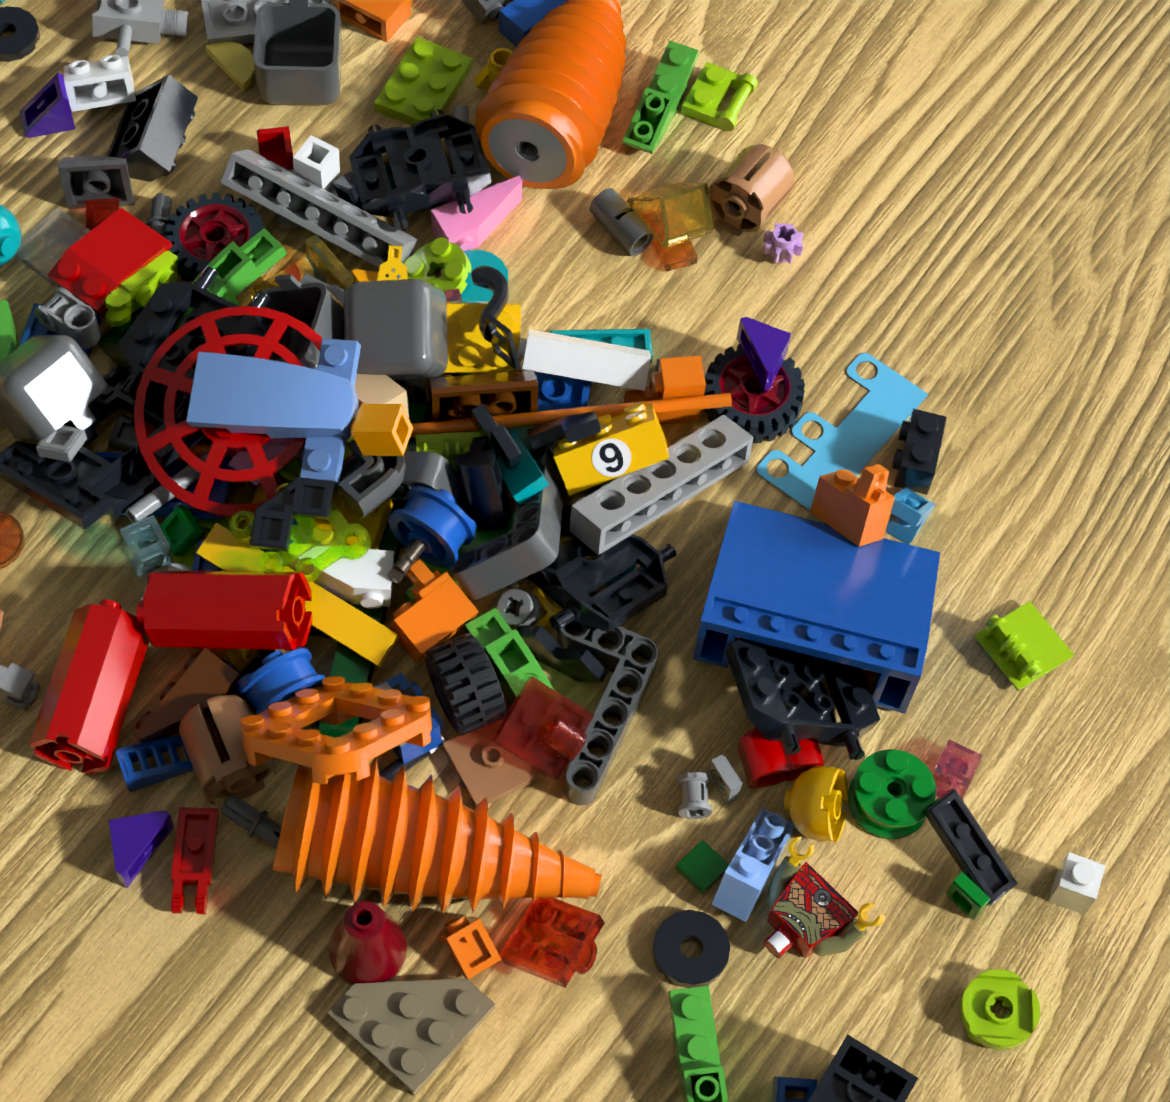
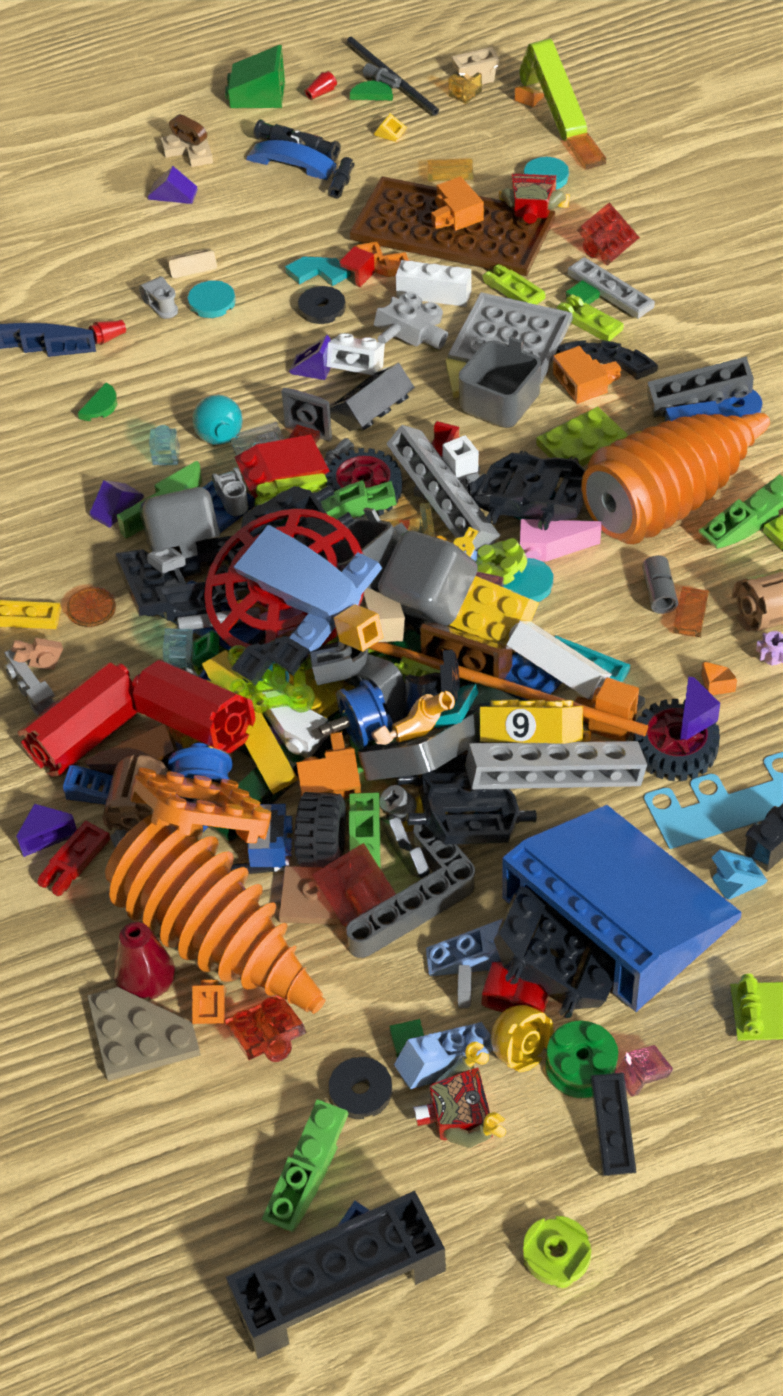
camera: 40 degrees right, 10 degrees down
(495, 281) = (519, 574): black piece -> none
(505, 506) = (419, 720): none -> light orange arm
(572, 427) = (501, 694): black tile -> none
(675, 212) = (701, 593): clear yellow slope -> none
(694, 795) = (434, 986): light grey bush -> none
(705, 735) = (471, 948): none -> light blue slope
(748, 302) = (718, 679): none -> orange slope
(855, 505) = (692, 844): orange hinge -> none
(967, 896) = (588, 1158): green tile -> none
(1077, 883) = (680, 1194): white brick -> none

